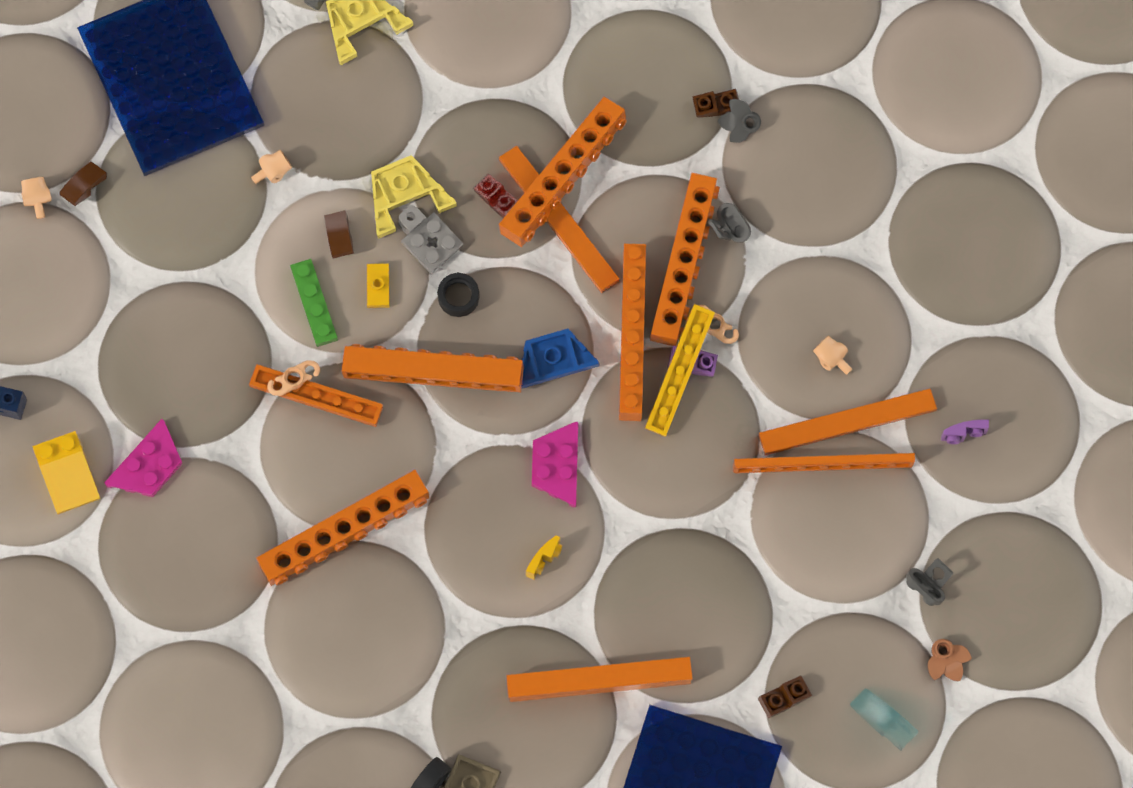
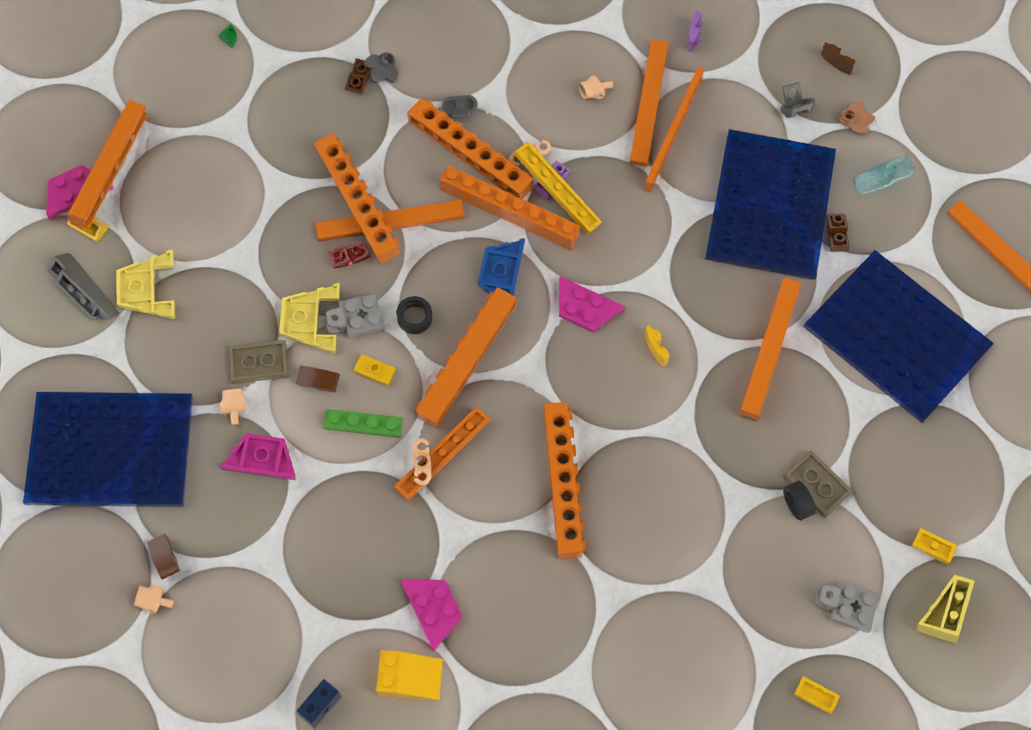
camera: 65 degrees left, 5 degrees down
(229, 223) = (261, 457): none -> dark pink wing
(332, 168) = (258, 361): none -> dark tan tile
(783, 608) = (771, 204): none -> clear blue plate
(1017, 601) = (832, 55): none -> reddish brown slope

